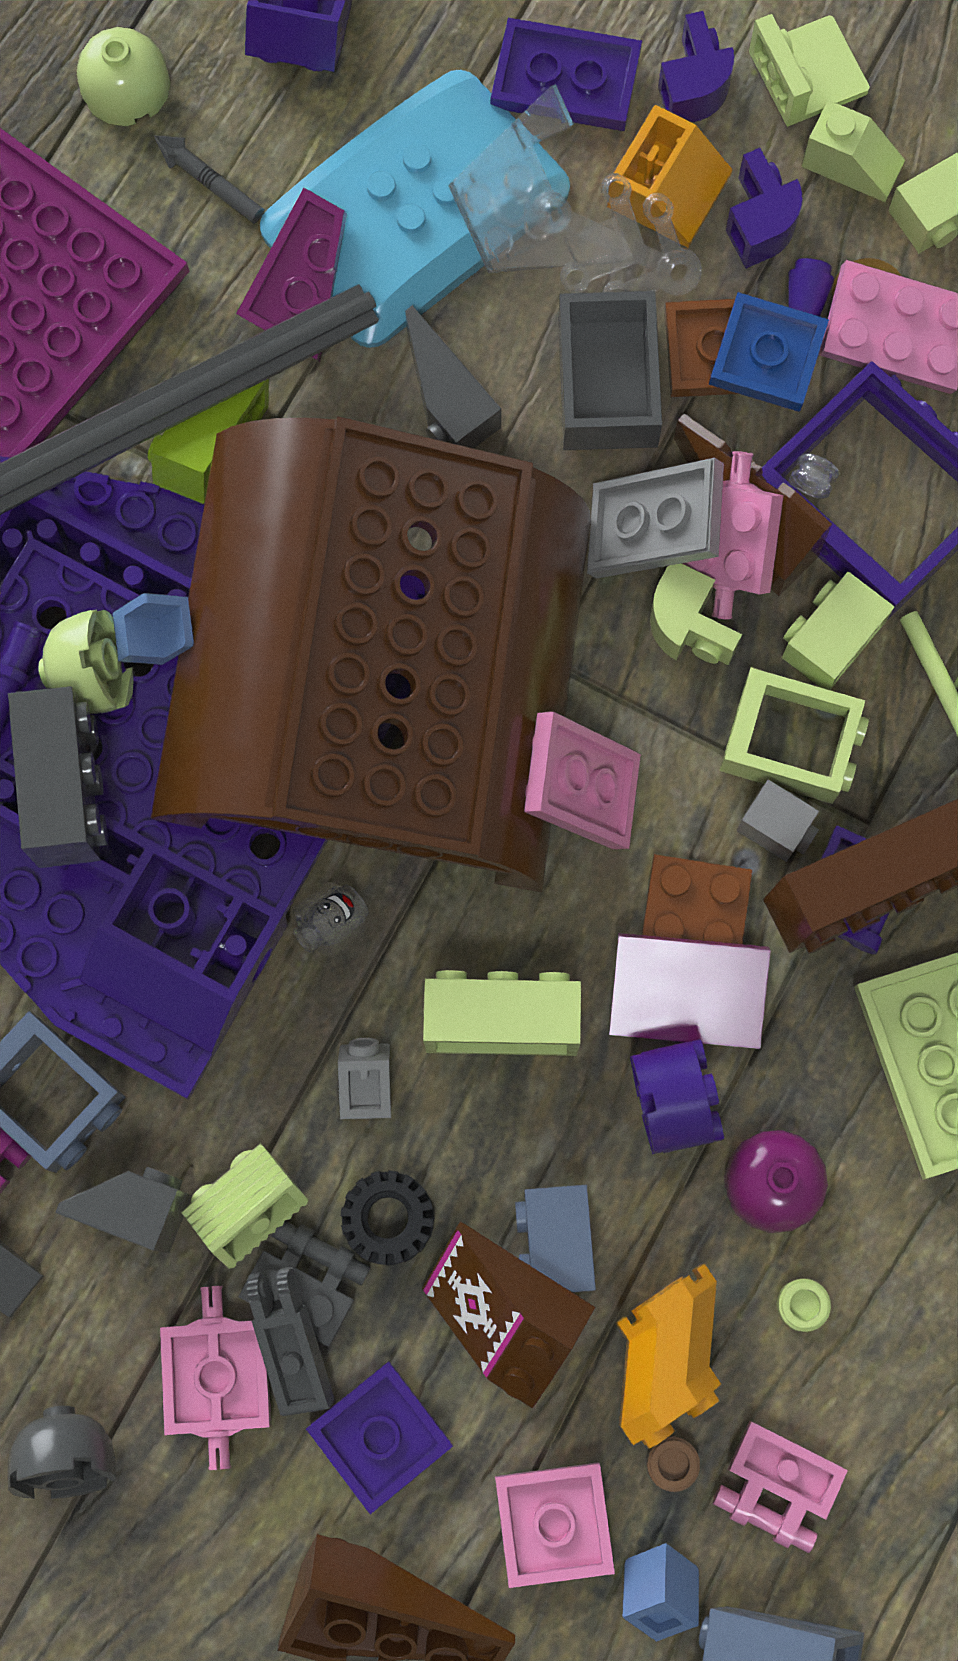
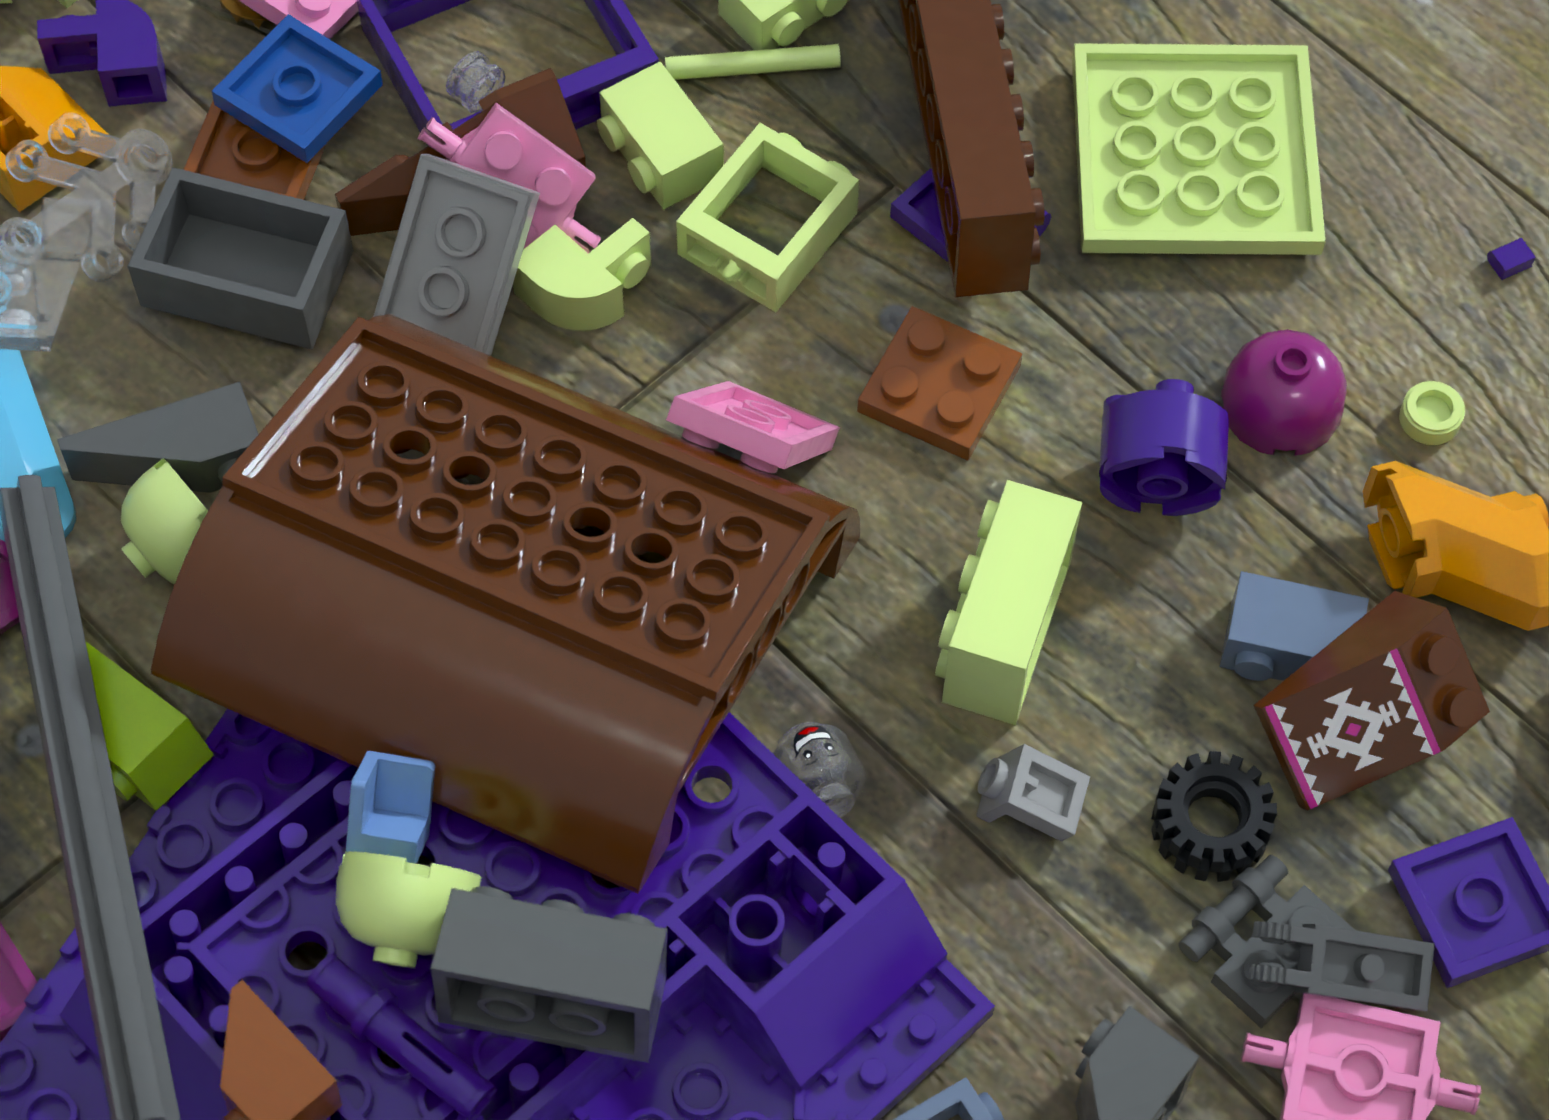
camera: 75 degrees left, 15 degrees down
(244, 1205) = (1153, 964): yellowish green brick -> none
(377, 398) = (160, 521): none -> yellowish green cylinder
(689, 990) = (1035, 405): tile -> none
(779, 822) = (864, 260): light grey brick -> none
(809, 285) = (225, 34): dark purple cone -> none

